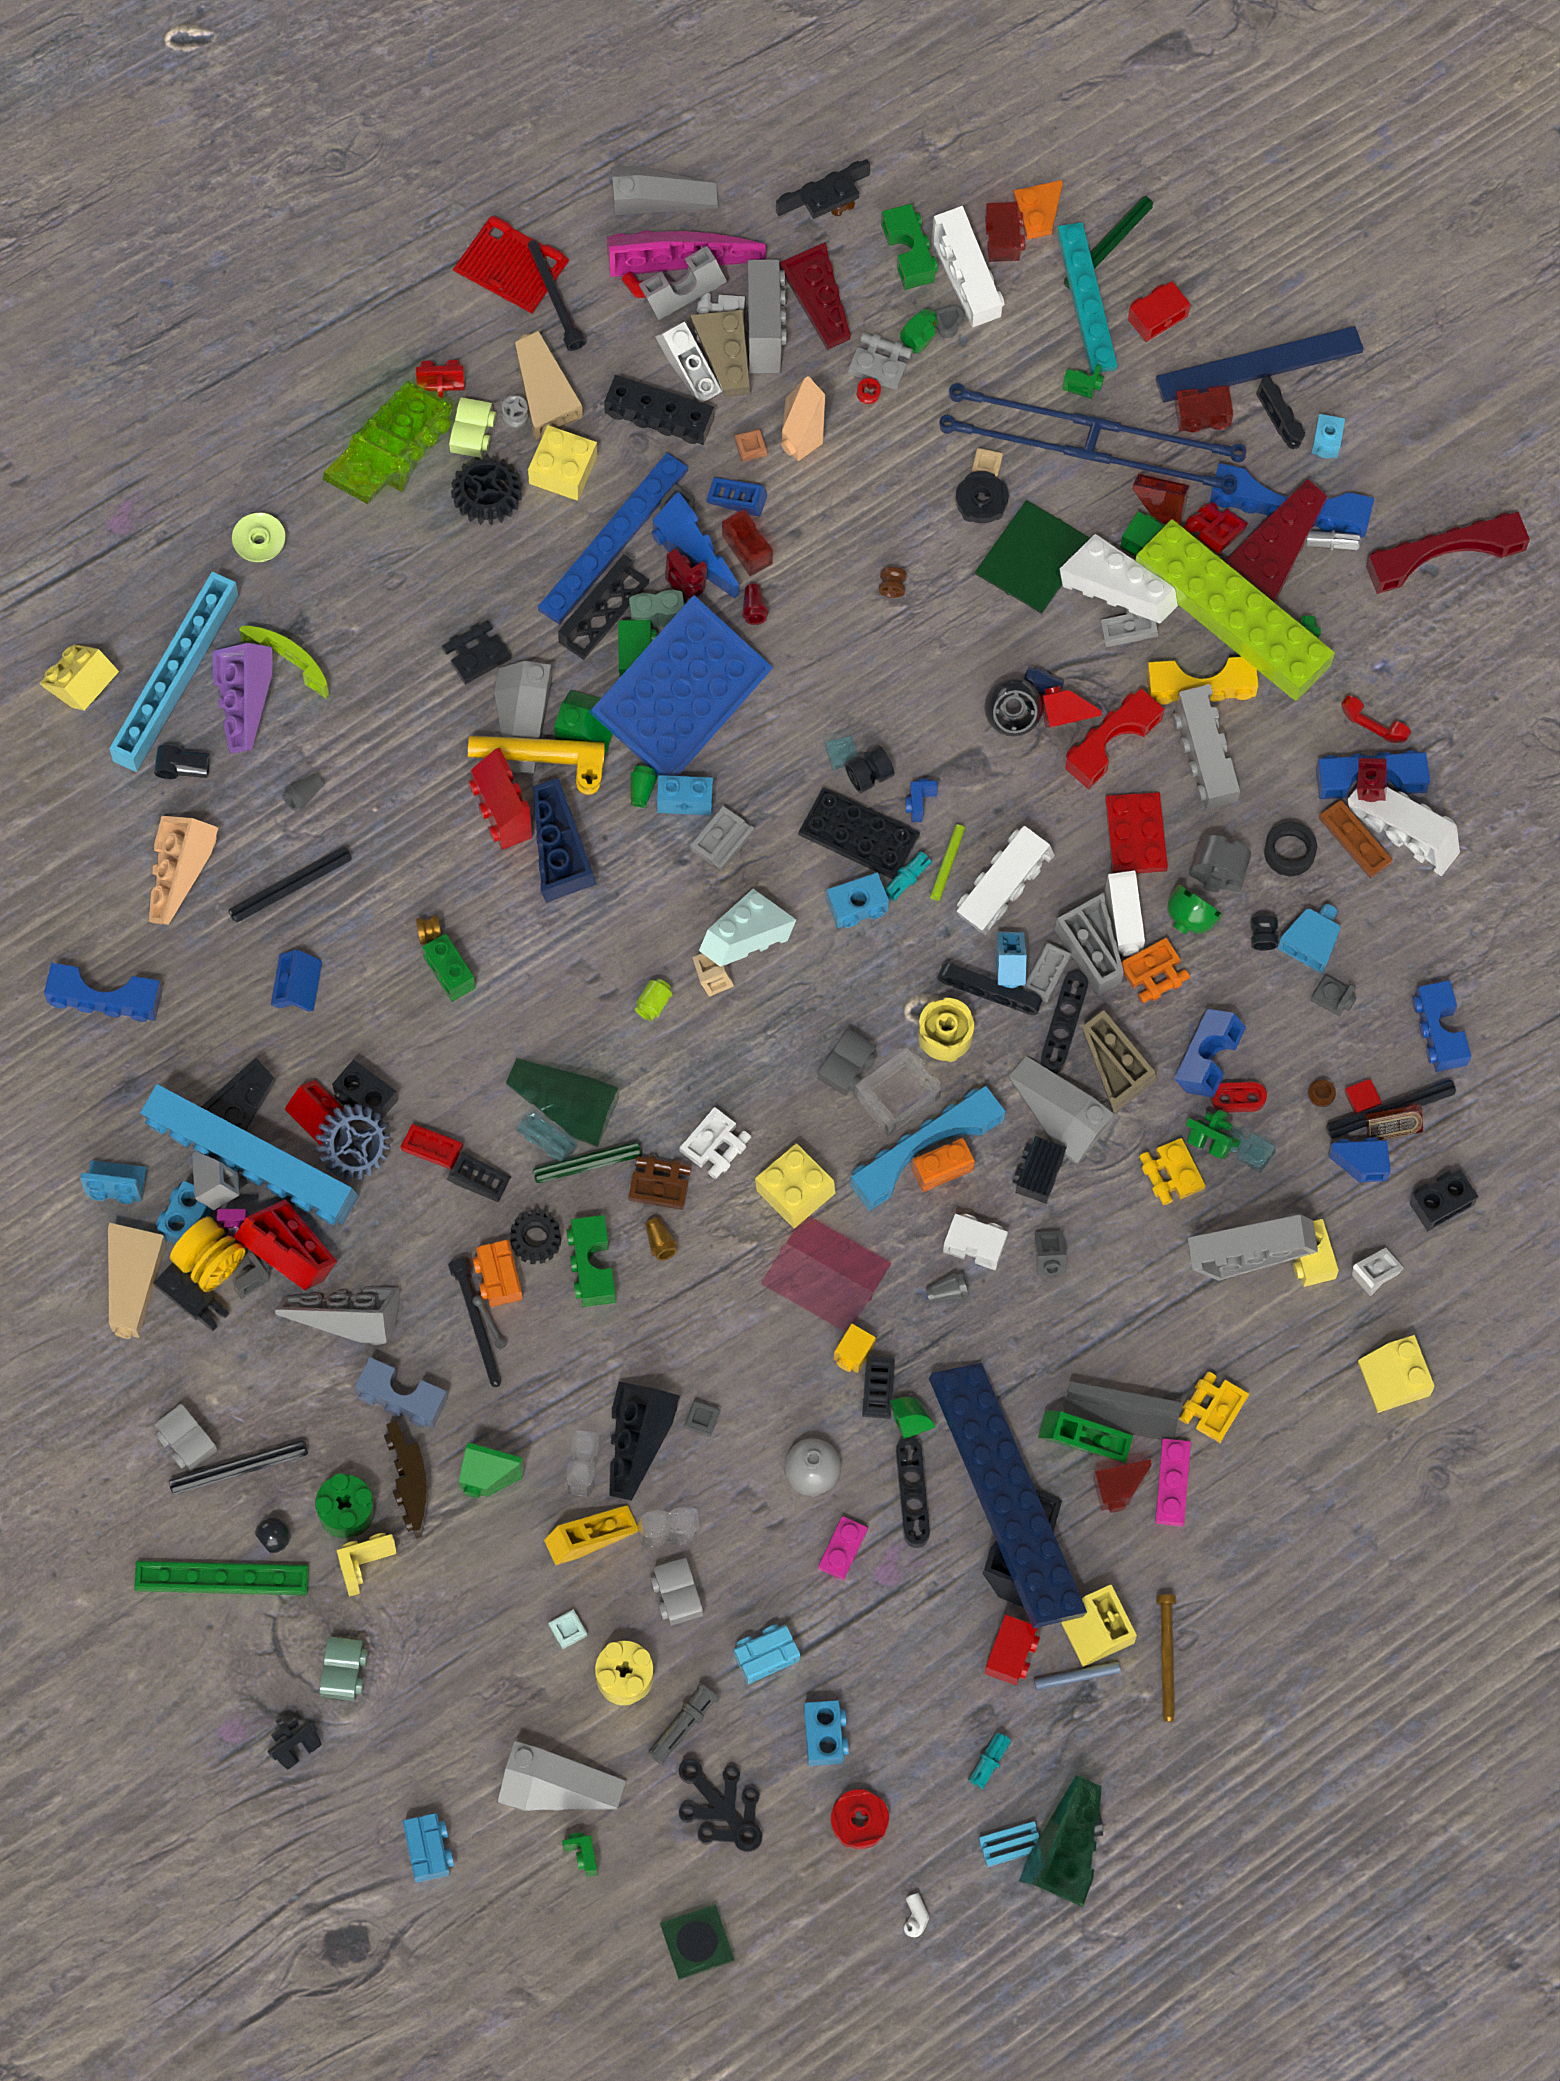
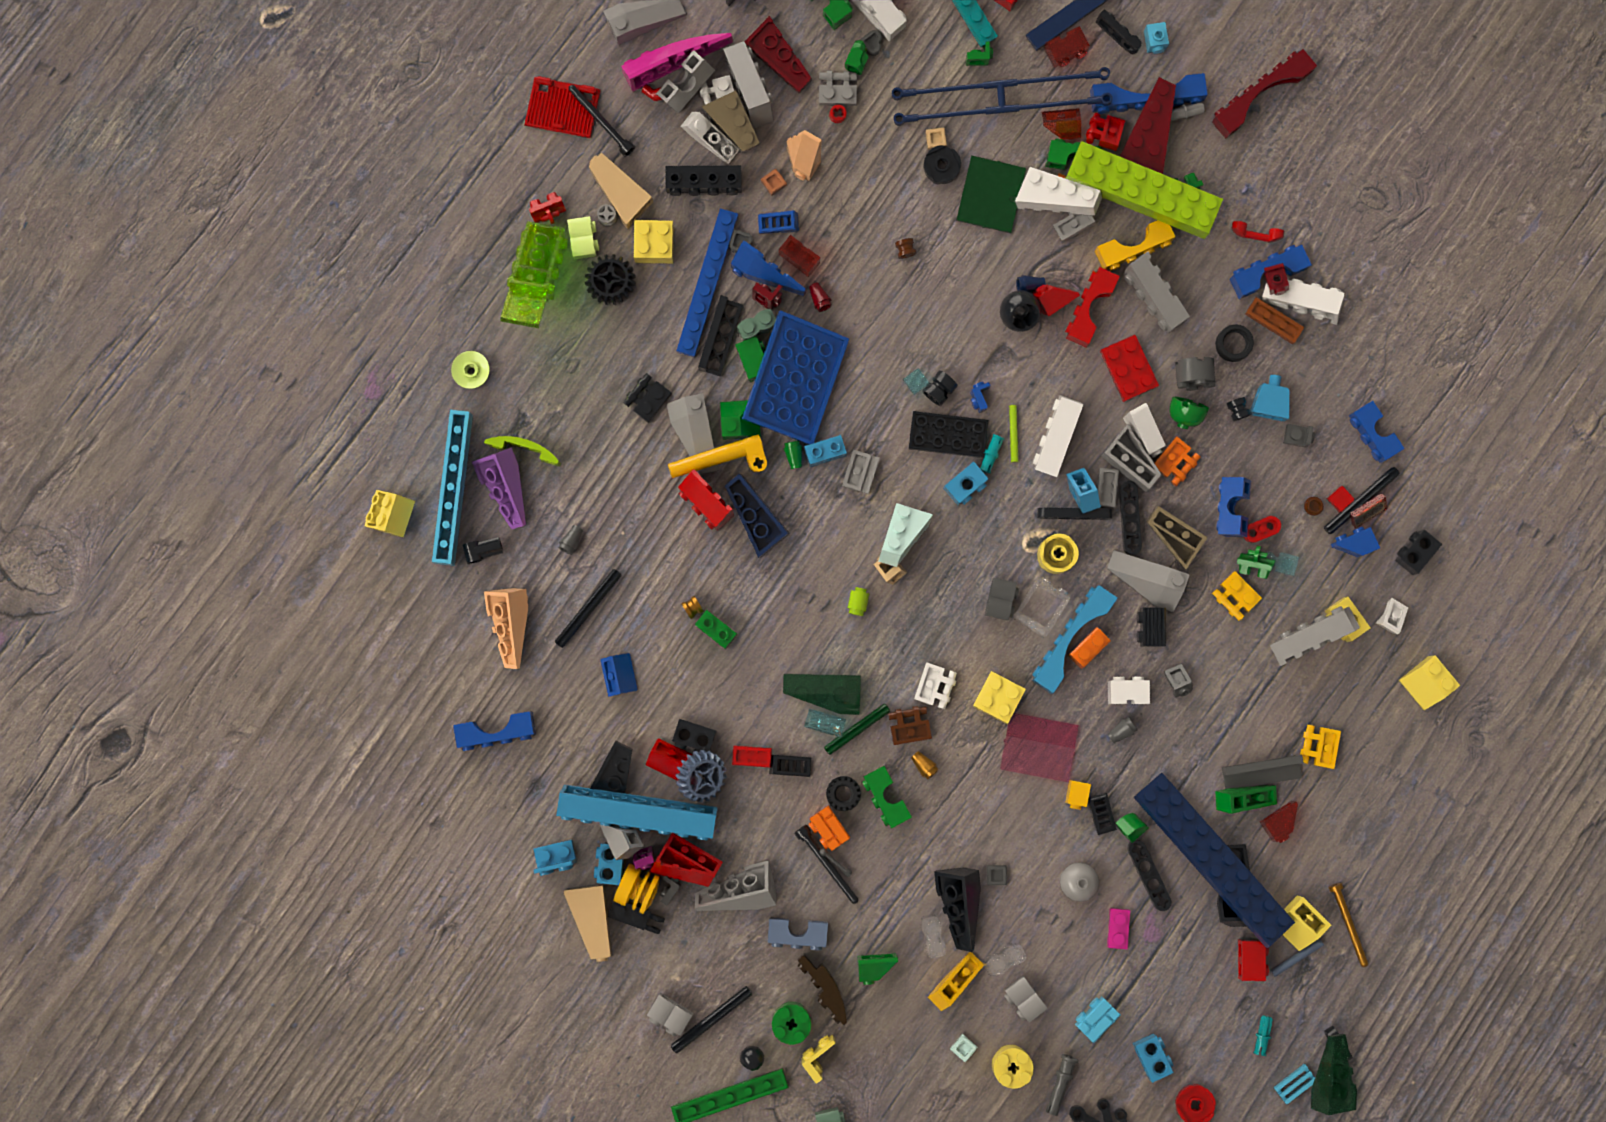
camera: 20 degrees left, 15 degrees up
(1172, 1482) = (1311, 806): dark pink plate -> none

